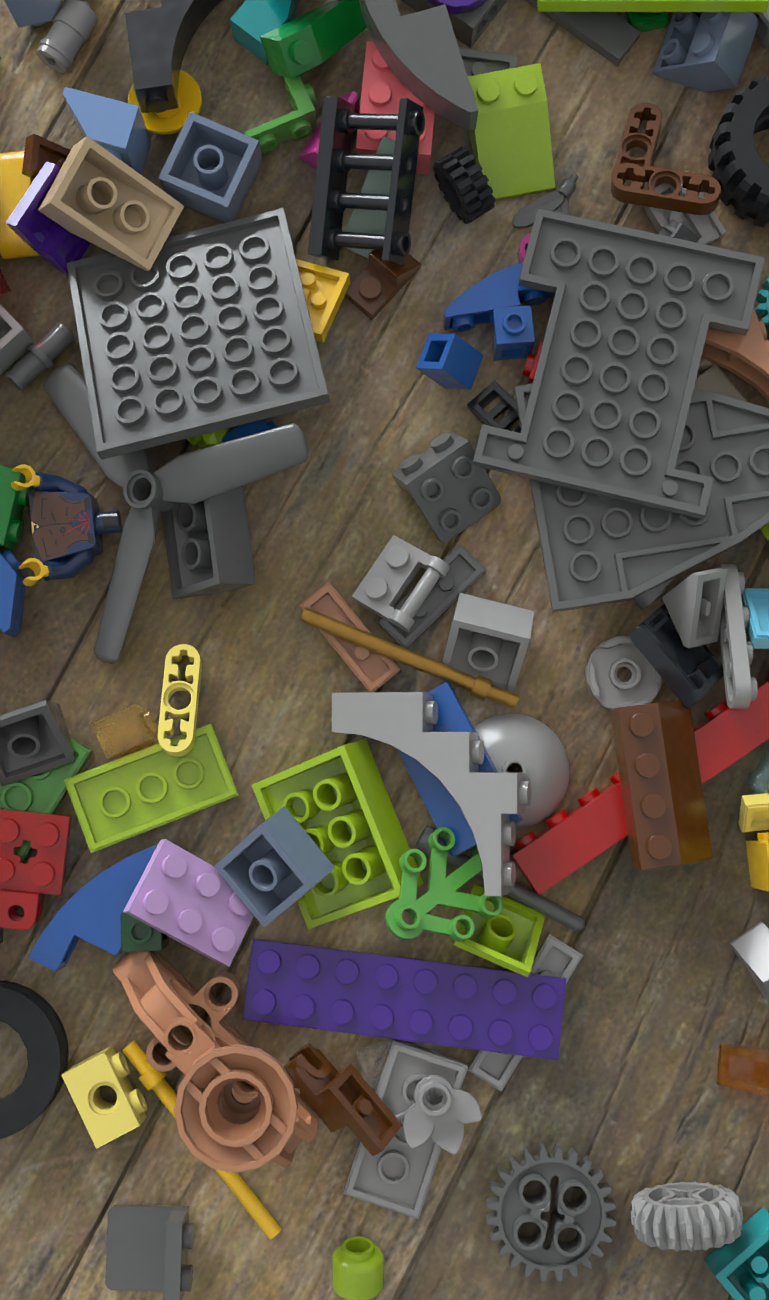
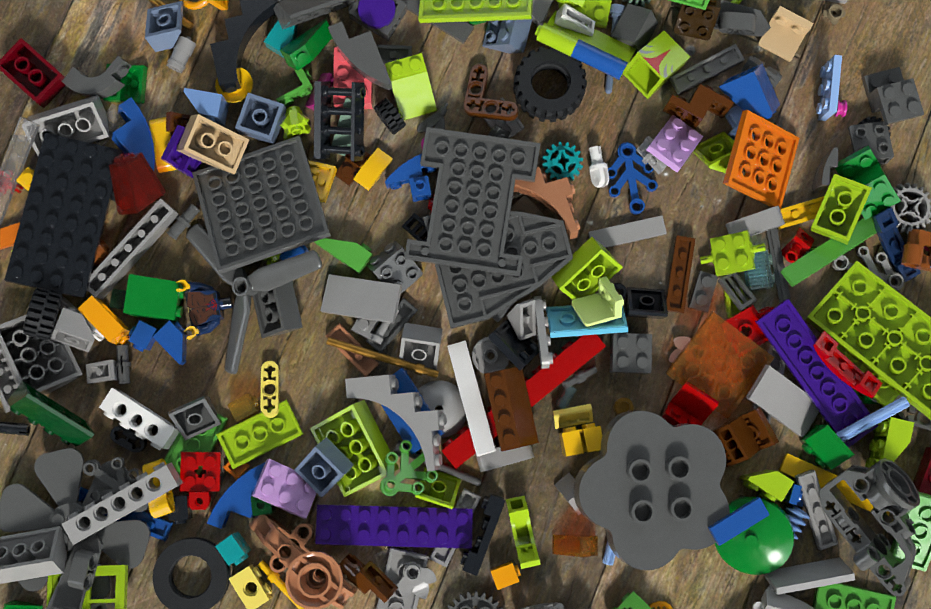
camera: 10 degrees left, 0 degrees up
(77, 1016) = (234, 549): none -> teal brick
(101, 859) = (237, 472): none -> orange tile
(276, 184) = (295, 123): none -> lime rock
(356, 444) = (347, 252): none -> bright green slope
(378, 537) = (361, 298): none -> light grey tile
(421, 287) = (373, 168): none -> yellow slope
(449, 361) = (390, 206): blue brick -> none
(561, 1083) = (472, 560): none -> black piece
(582, 757) = (471, 398): none -> white tile
(618, 881) = (499, 459): none -> light grey beam
(620, 1119) = (505, 575): none -> light orange brick
(662, 1038) = (522, 532): none -> lime arch

